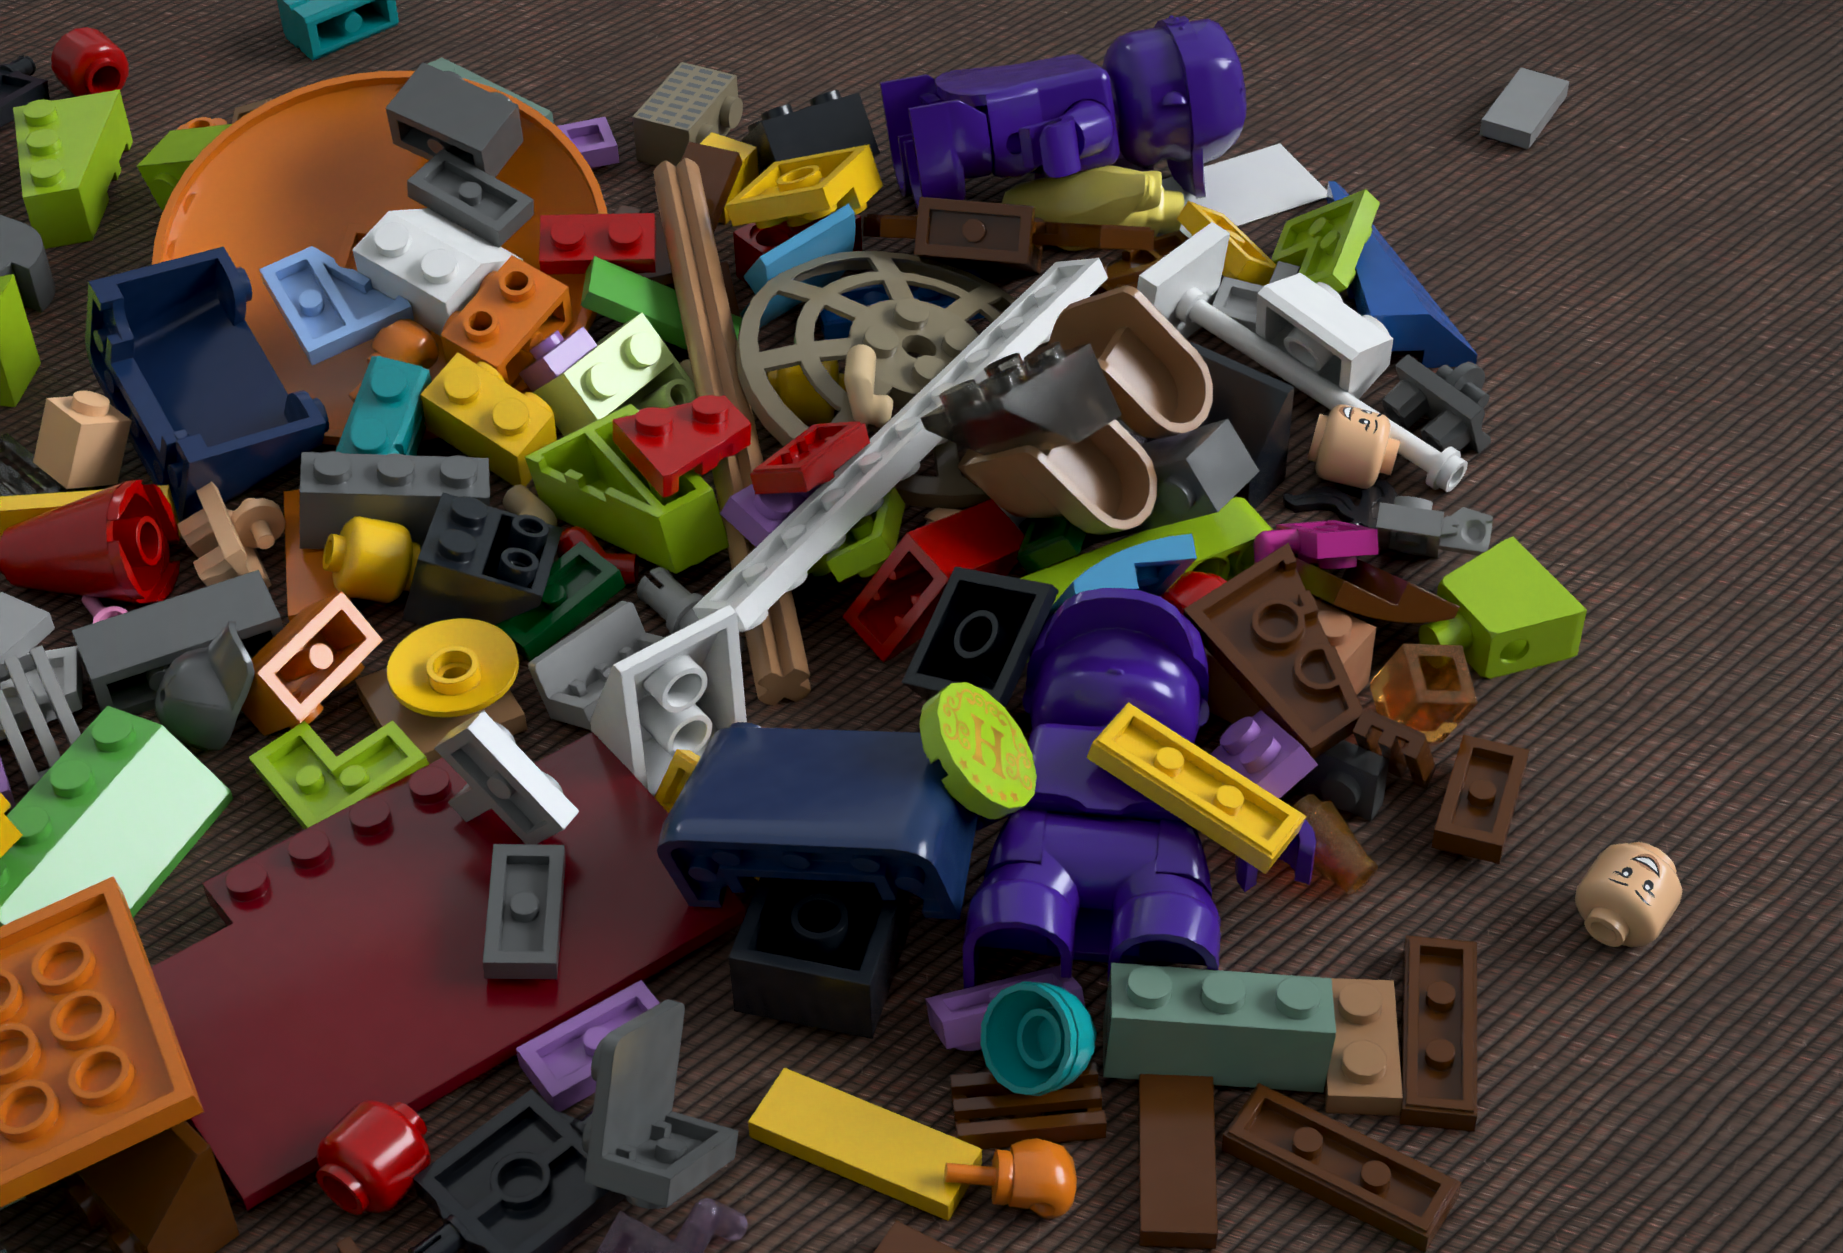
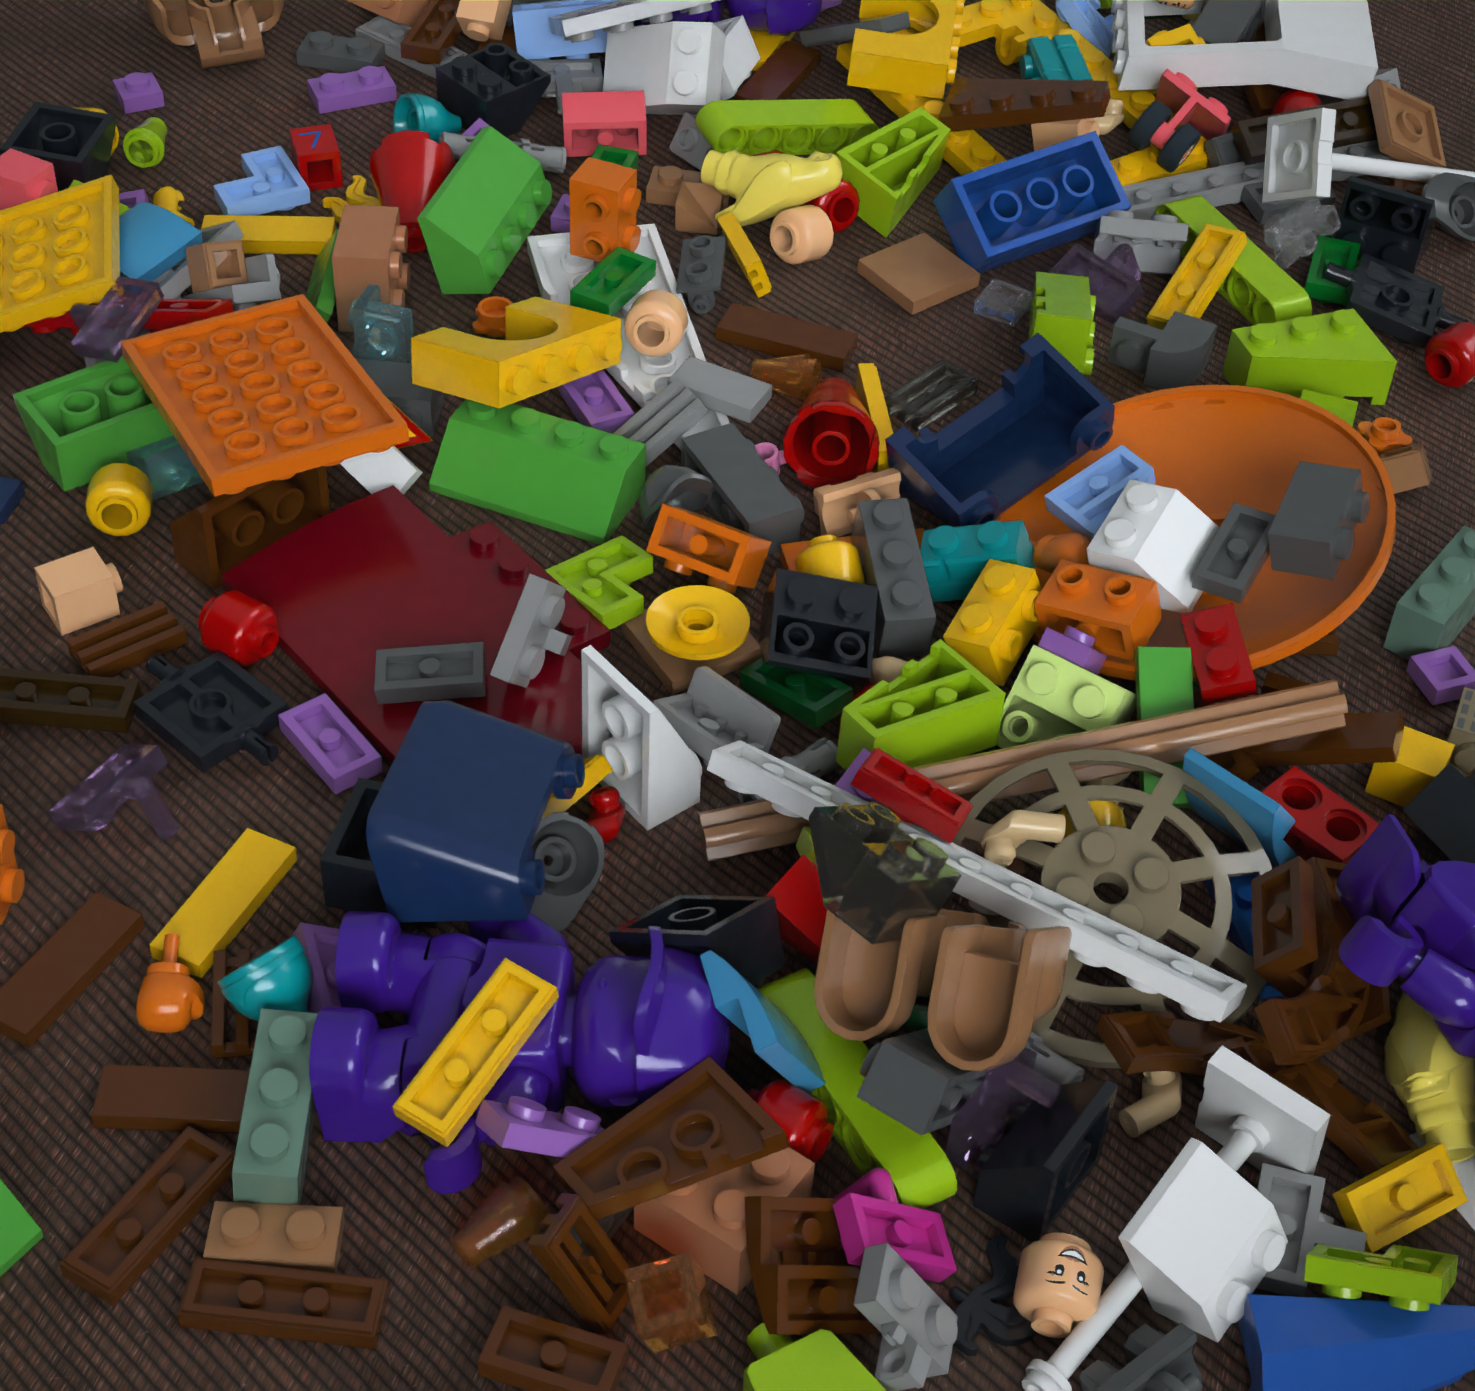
camera: 85 degrees right, 0 degrees up
(82, 440) = (950, 400): light nougat brick -> none
(633, 1134) = (226, 748): dark grey bracket -> none
(680, 438) = (935, 714): red wing -> none
(808, 188) = (1328, 787): yellow plate -> none
(979, 749) = (497, 879): lime tile -> none

